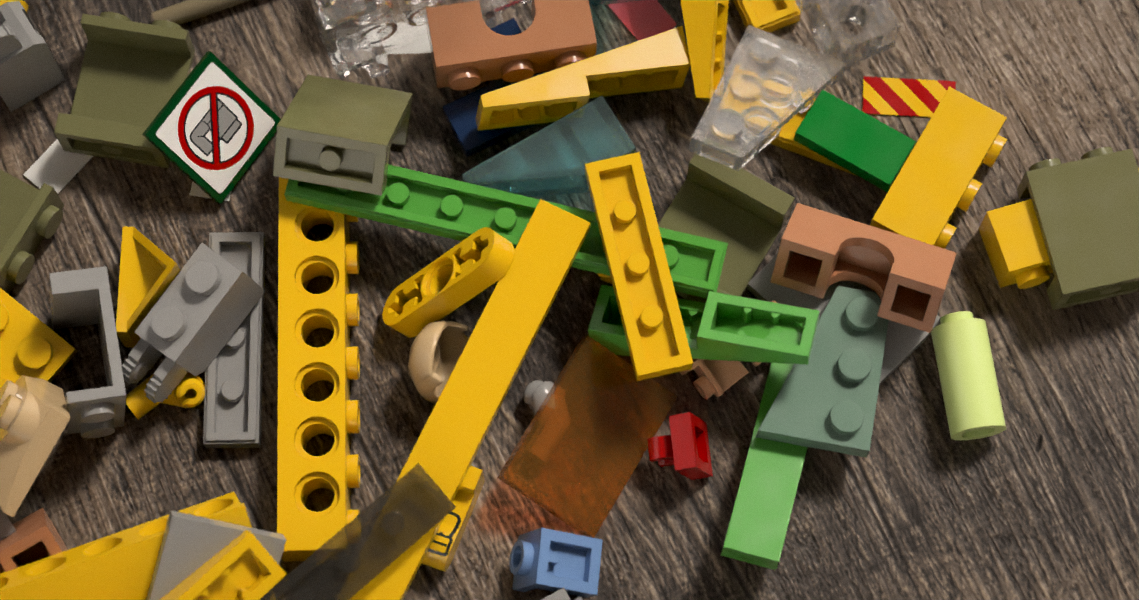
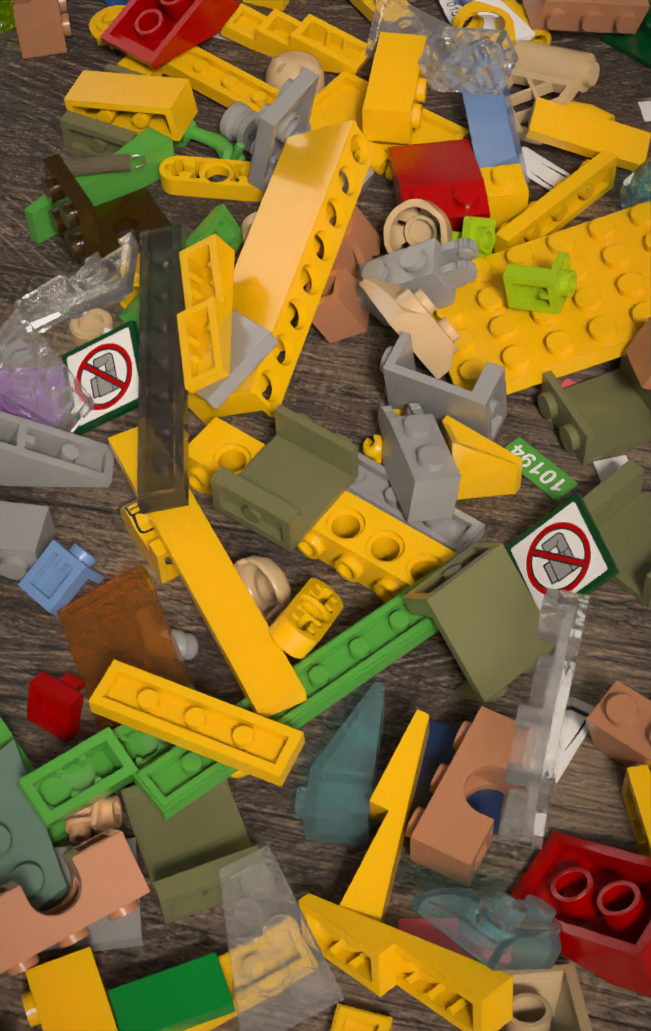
camera: 130 degrees right, 20 degrees down
(99, 232) = (541, 470): none -> bright green sticker
(314, 407) = (289, 480): none -> olive panel

